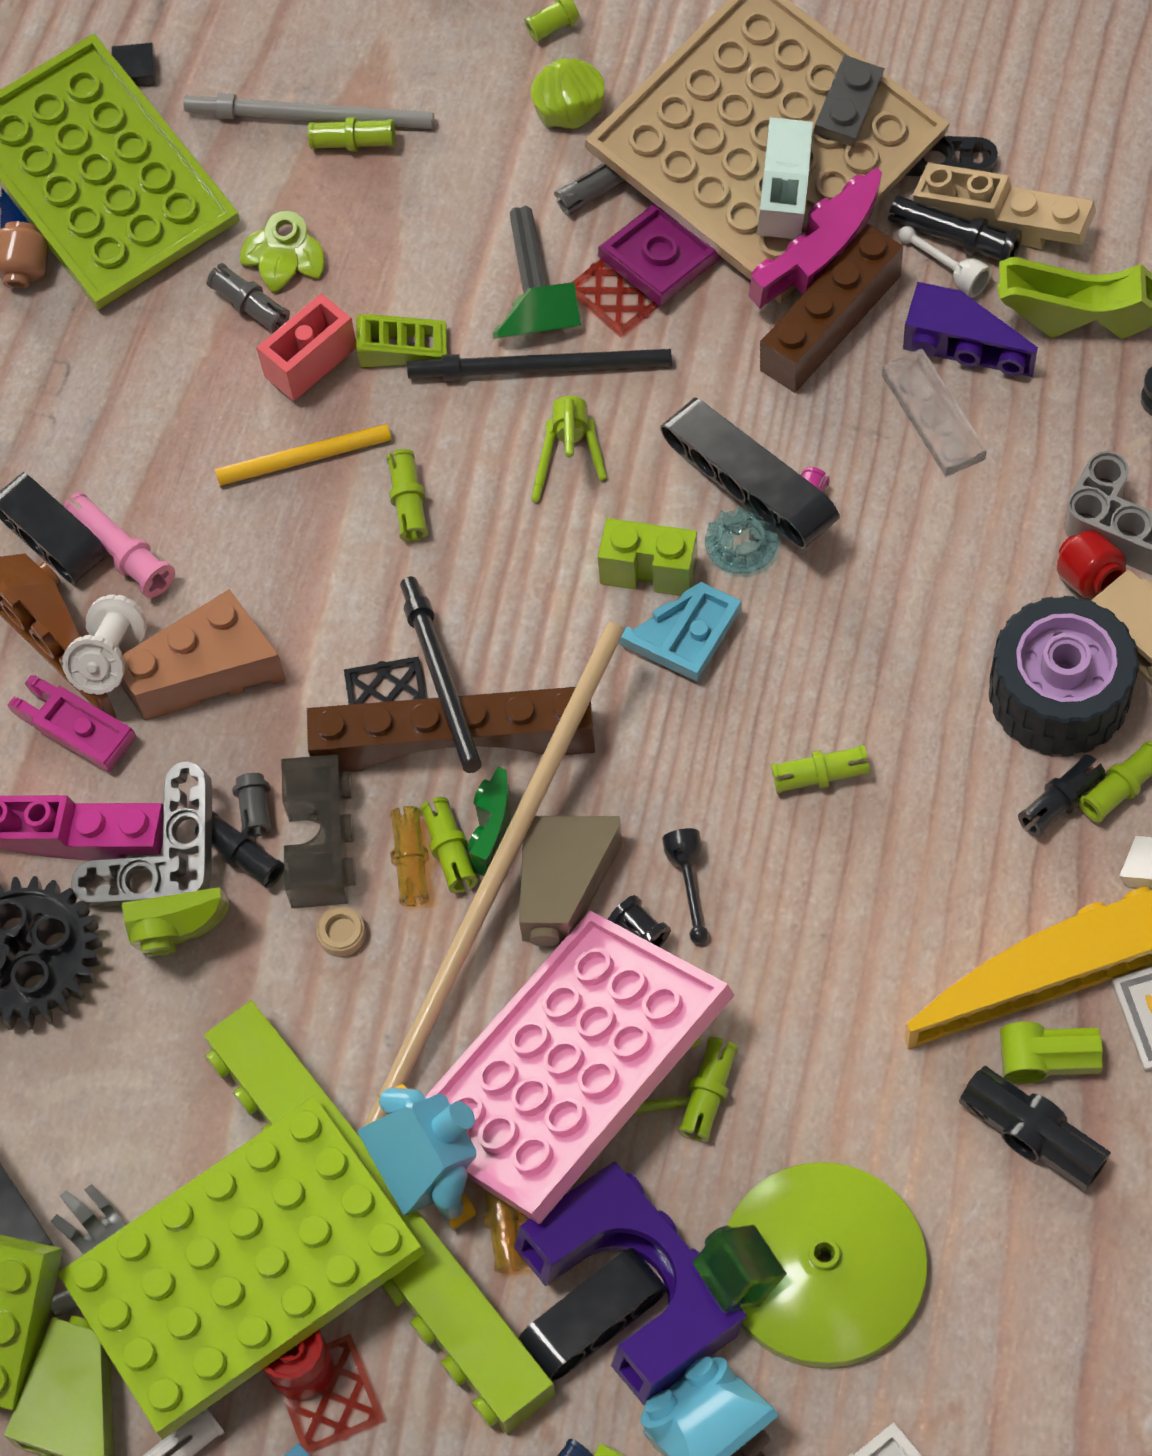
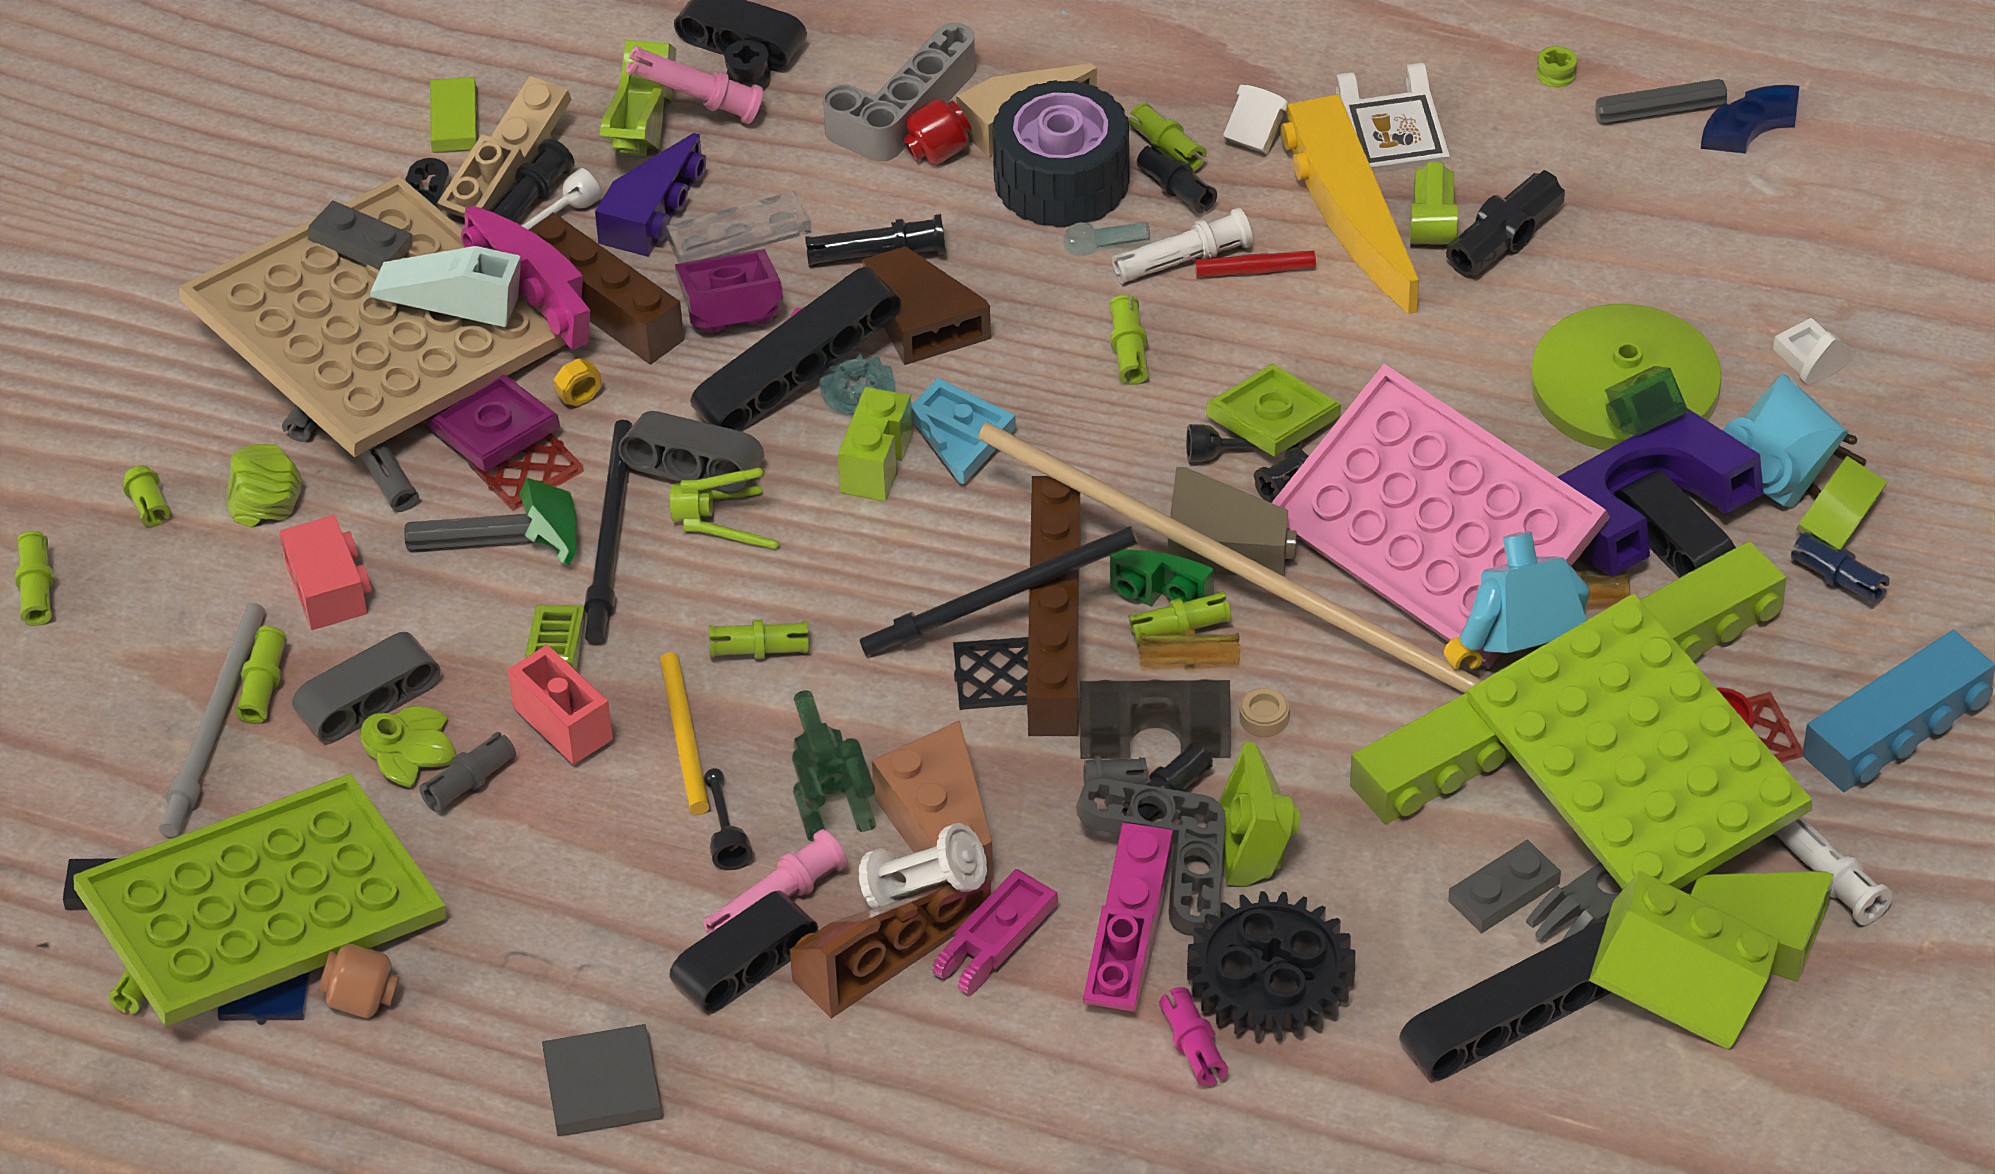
camera: 90 degrees left, 15 degrees down
(127, 1161) = (1504, 886): none -> dark grey plate
(171, 502) = (722, 843): none -> black hinge
(244, 561) = (826, 767): none -> clear green plant
(338, 209) = (366, 685): none -> dark grey beam
(465, 155) = (324, 571): none -> coral brick
(626, 409) = (688, 449): none -> dark grey beam
(712, 309) = (577, 382): none -> yellow tile
(733, 910) = (1273, 409): none -> lime tile
(842, 575) = (934, 310): none -> reddish brown slope
(846, 411) = (730, 290): none -> magenta slope
(934, 548) = (917, 236): none -> black pin
(952, 883) = (1255, 263): none -> red piece
(969, 826) = (1201, 241): none -> white pin
(970, 720) = (1084, 239): none -> clear light blue bar
(1066, 162) = (453, 114): none -> lime tile
(1107, 357) = (714, 90): none -> bright pink pin

